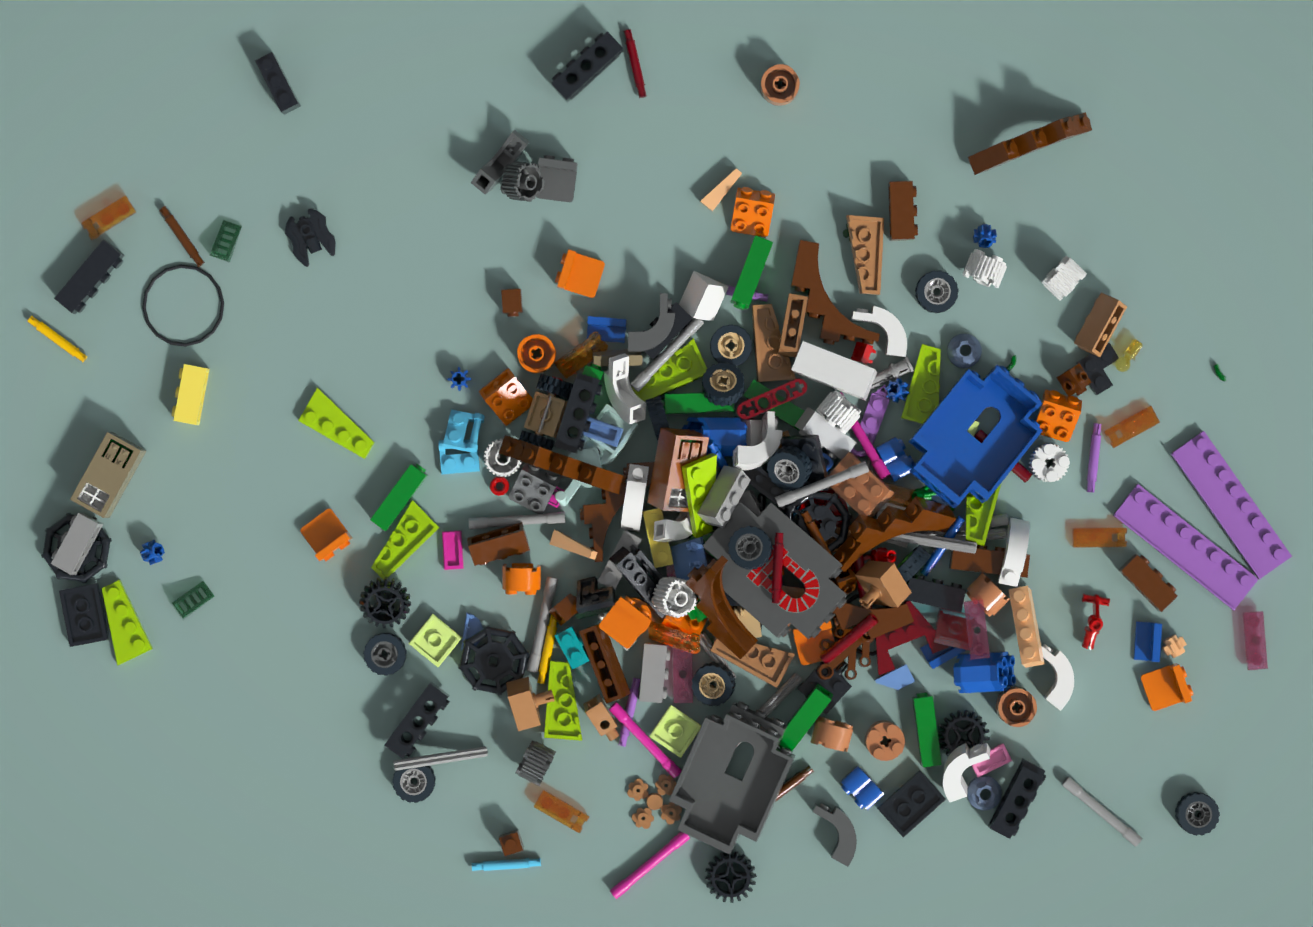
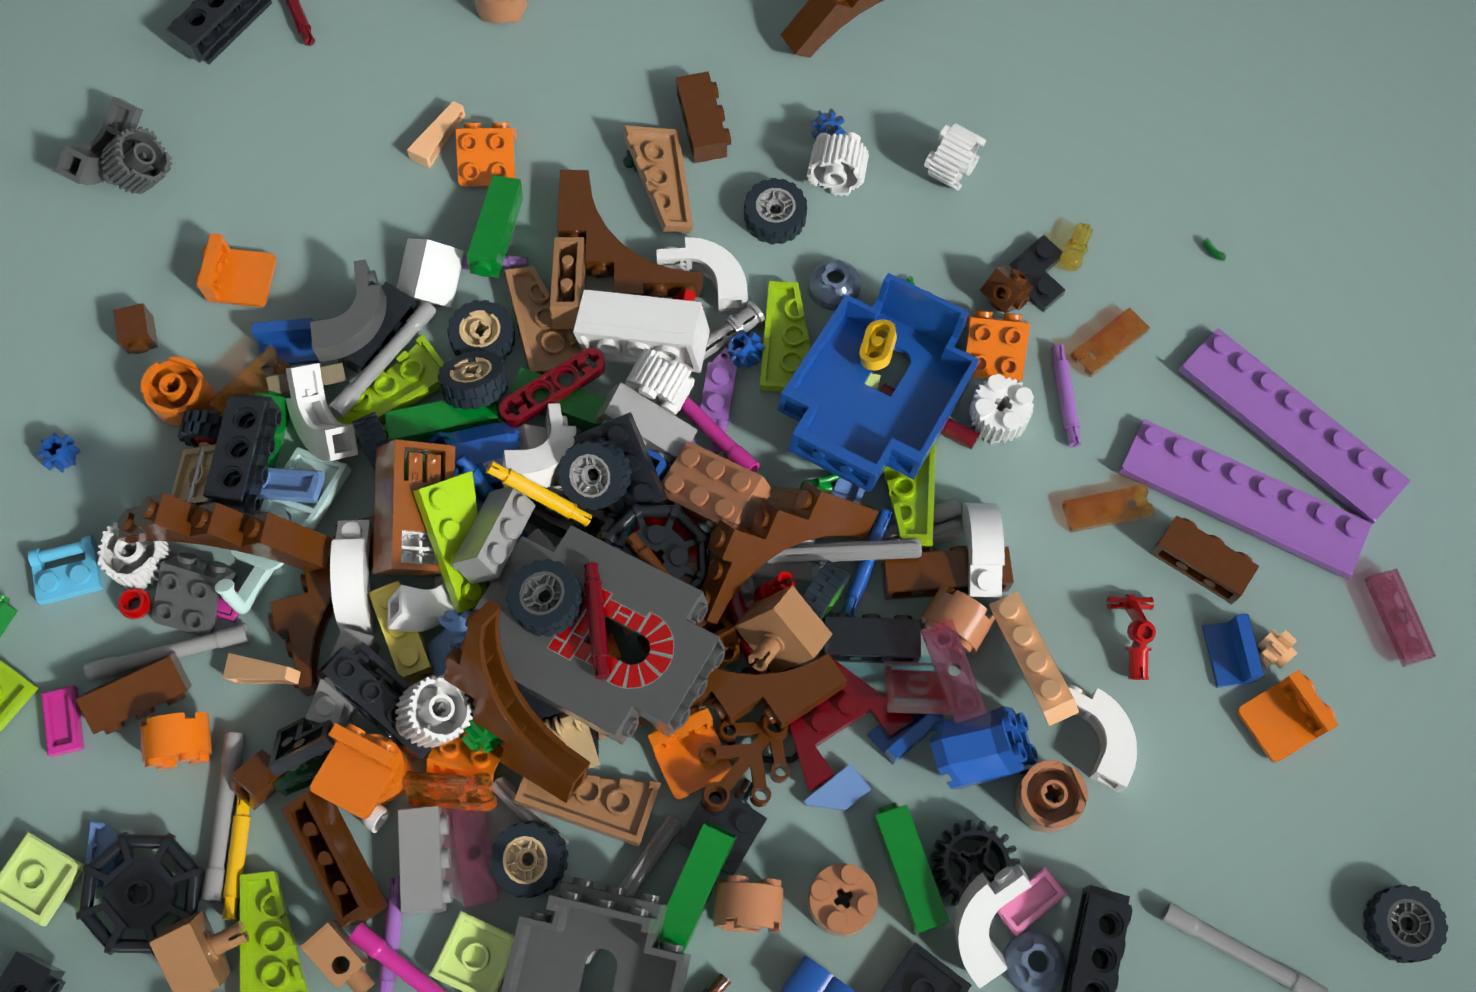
camera: 10 degrees left, 20 degrees down
(457, 429) = (58, 525): medium azure plate -> none
(506, 397) = (138, 467): orange bracket -> none
(558, 177) = (195, 154): dark grey bracket -> none
(572, 647) = (275, 843): teal brick -> none
(754, 477) = (539, 493): none -> yellow piece
(848, 639) = (744, 730): dark red piece -> none
(851, 472) = (607, 514): light grey piece -> none
(895, 458) = (763, 443): blue brick -> none
(981, 409) = (878, 345): none -> yellow plate
(1100, 324) = (1024, 209): medium nougat brick -> none

